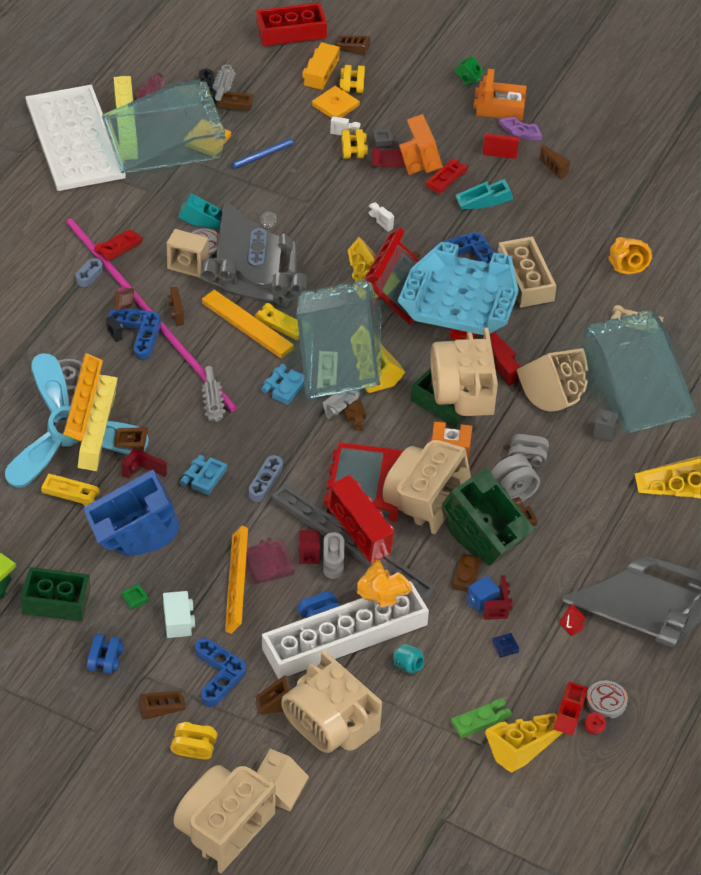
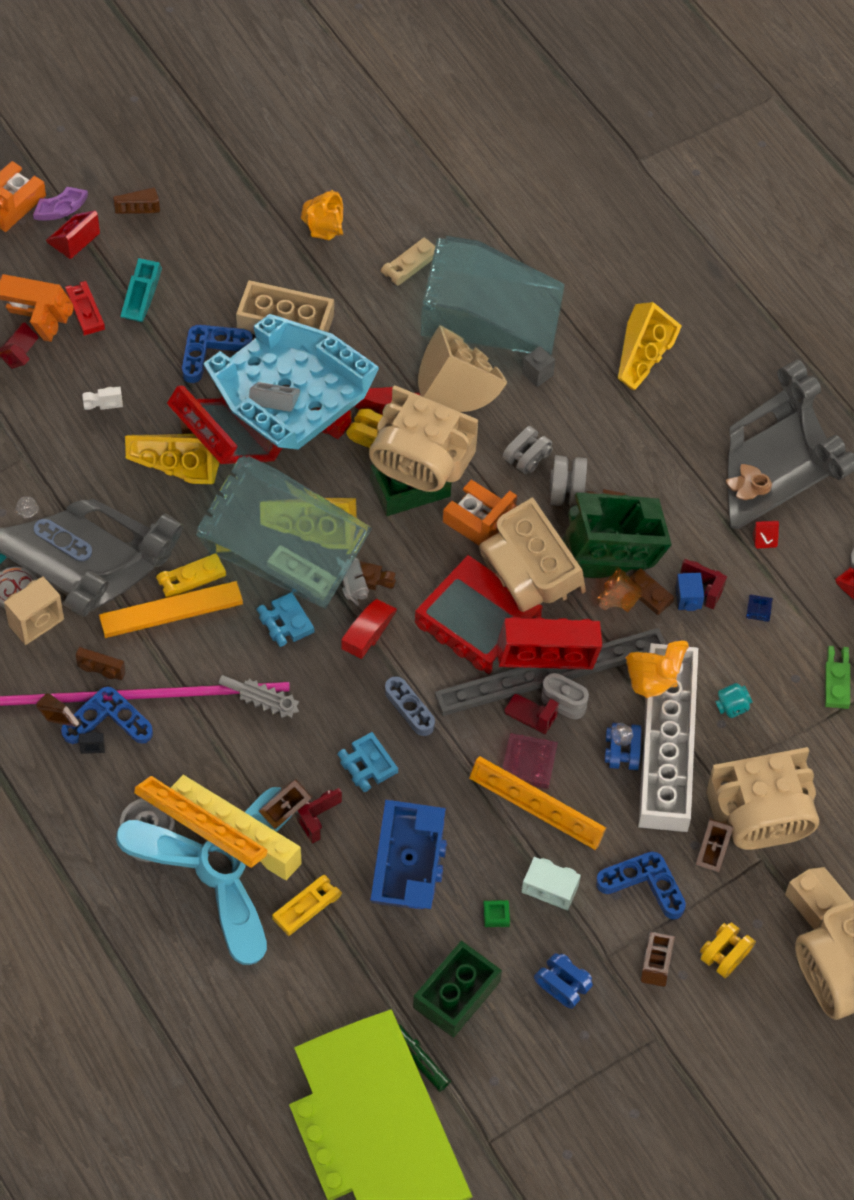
camera: 60 degrees left, 10 degrees up
(309, 427) = (367, 628): none -> red slope
(320, 596) = (622, 734): none -> clear plate
(443, 285) = (274, 396): none -> light grey slope
(446, 550) = (619, 592): none -> clear orange brick
(609, 593) = (749, 483): none -> medium nougat plate

